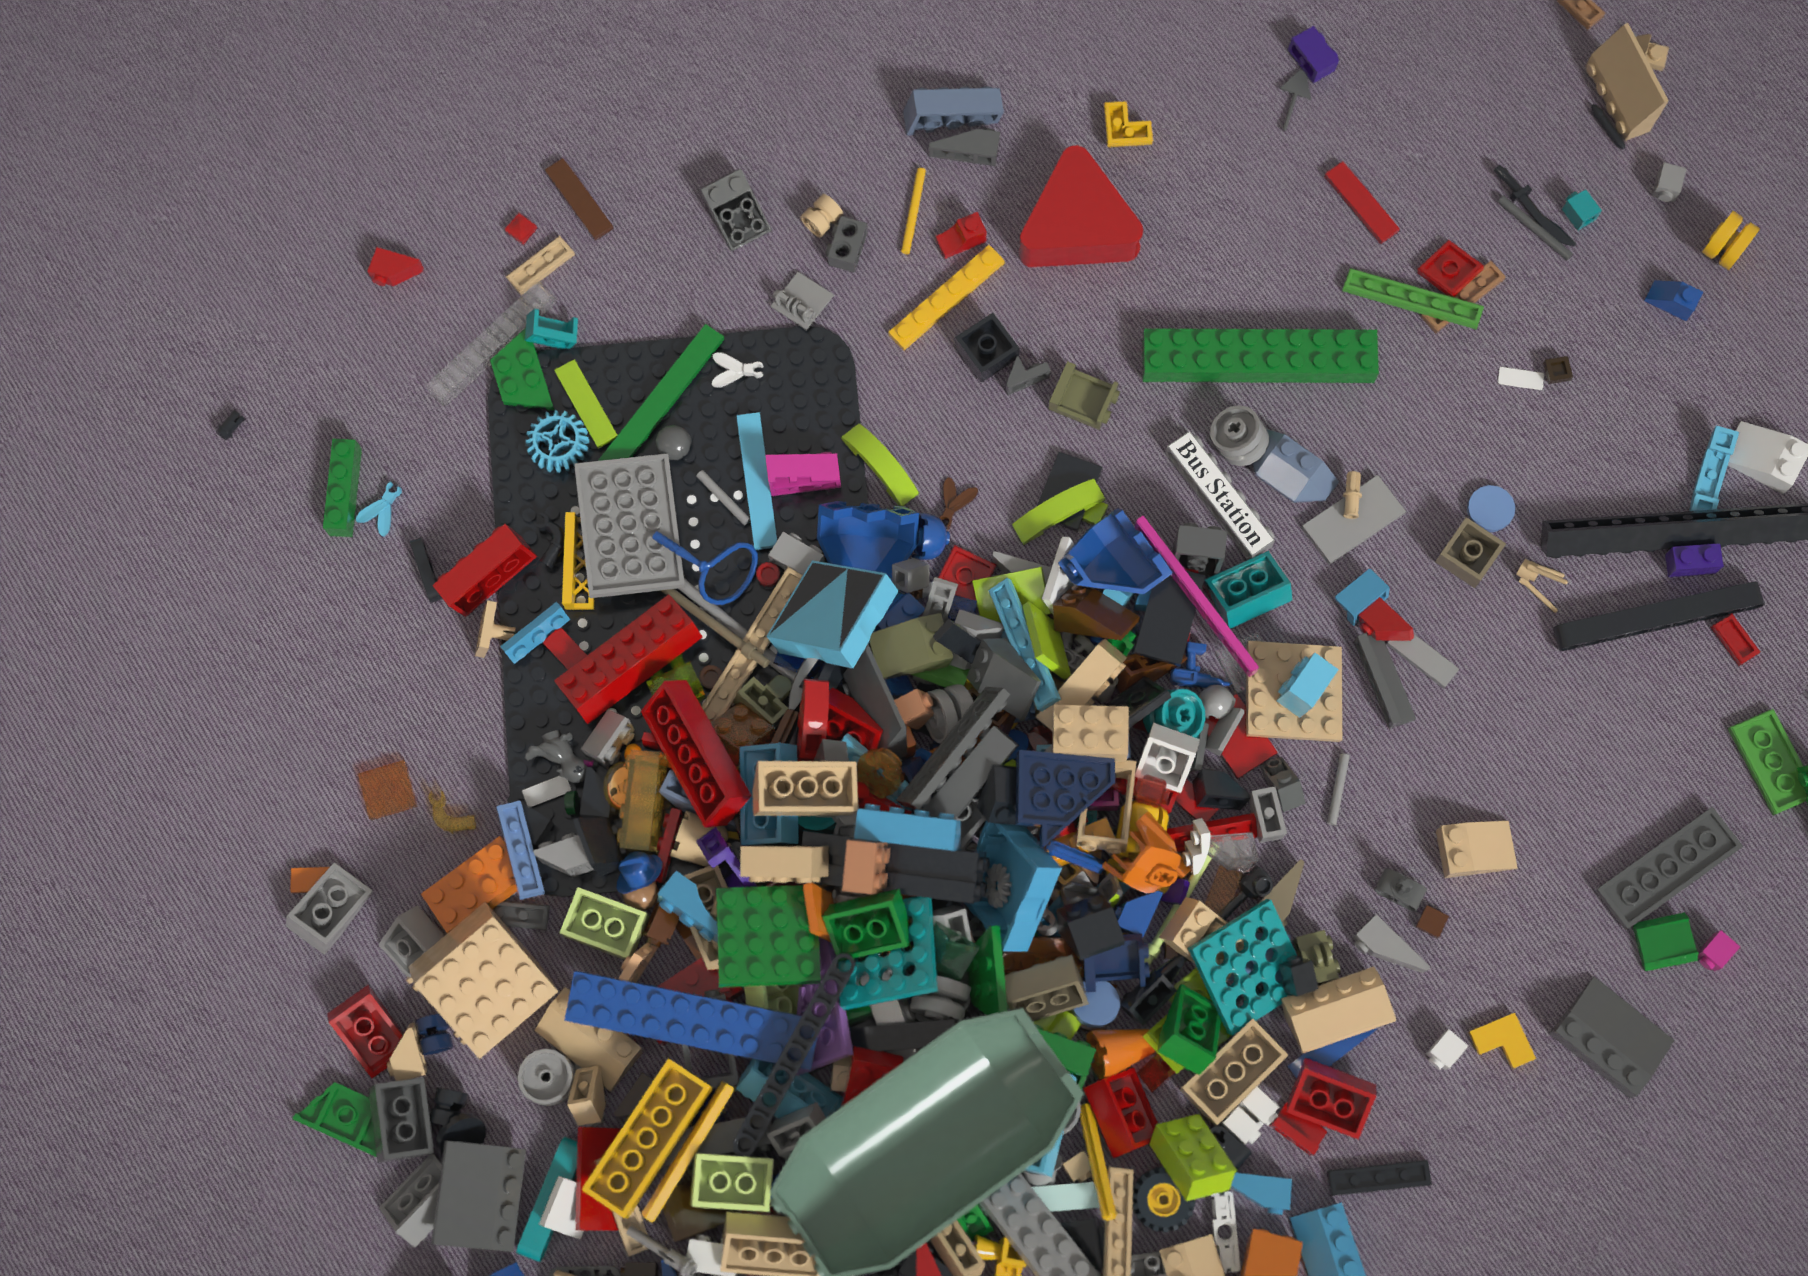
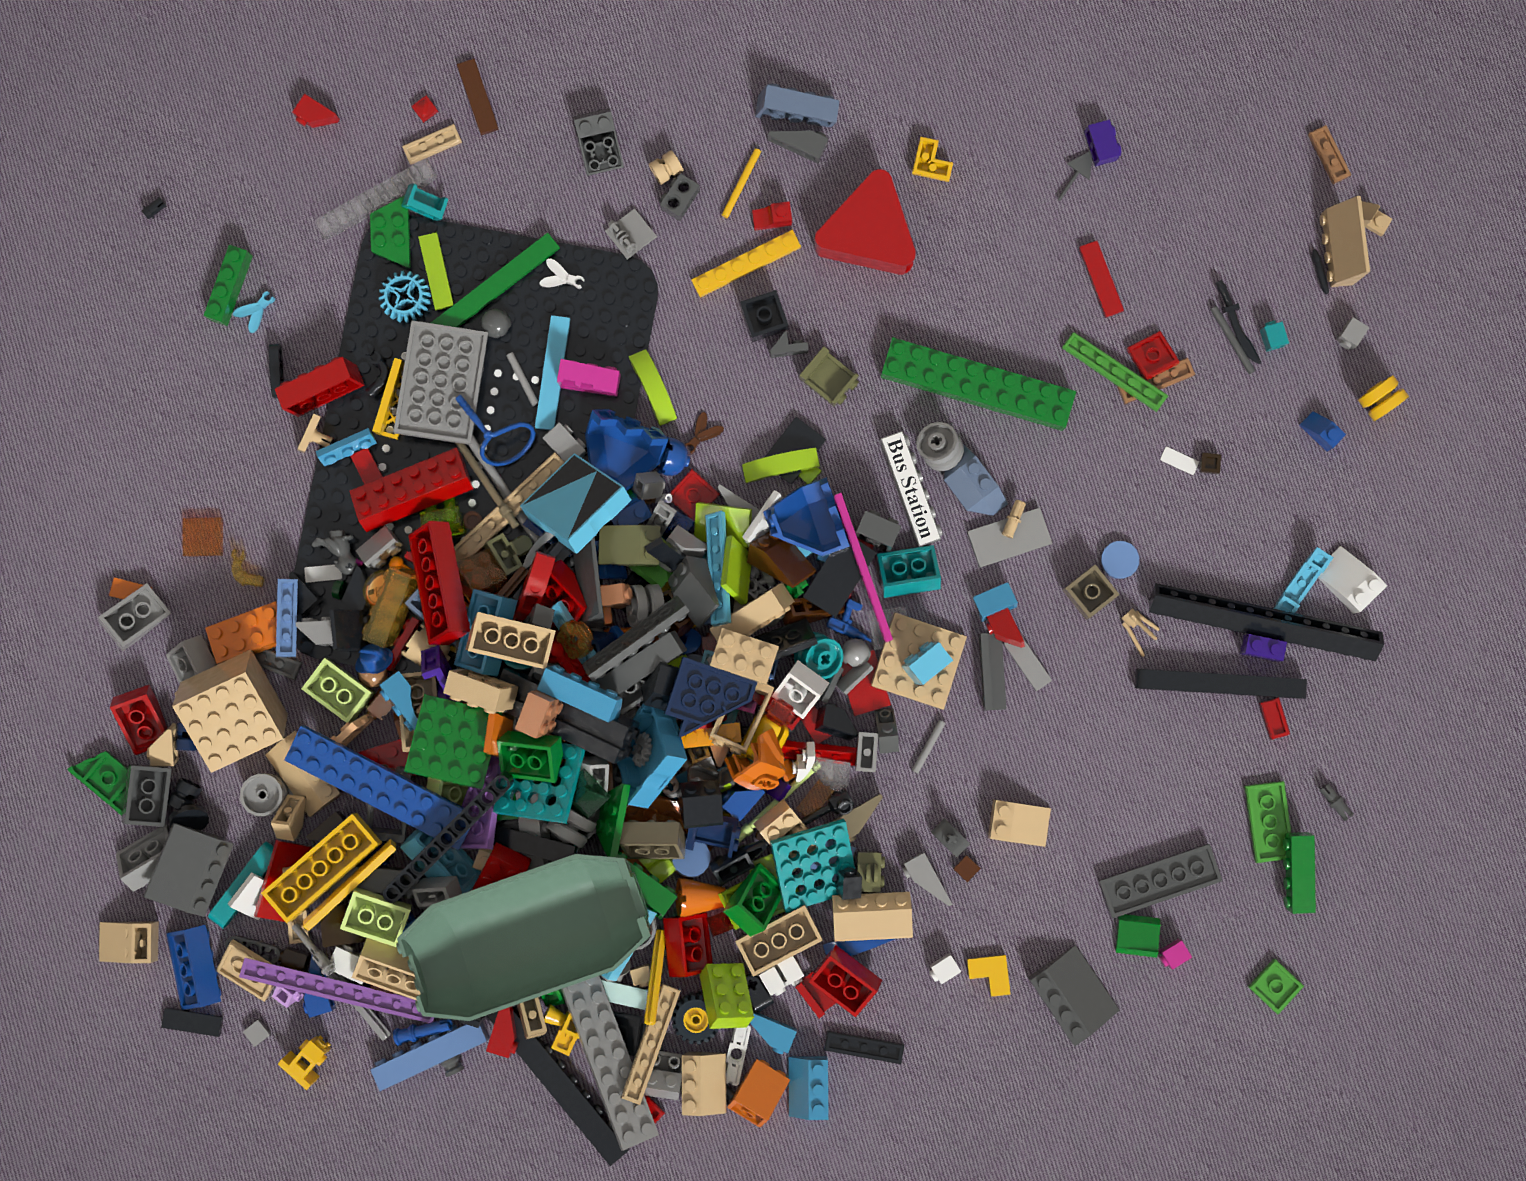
camera: 15 degrees right, 10 degrees up
(768, 574) = (540, 451): red tile -> none
(1075, 857) = (705, 747): blue axle -> none

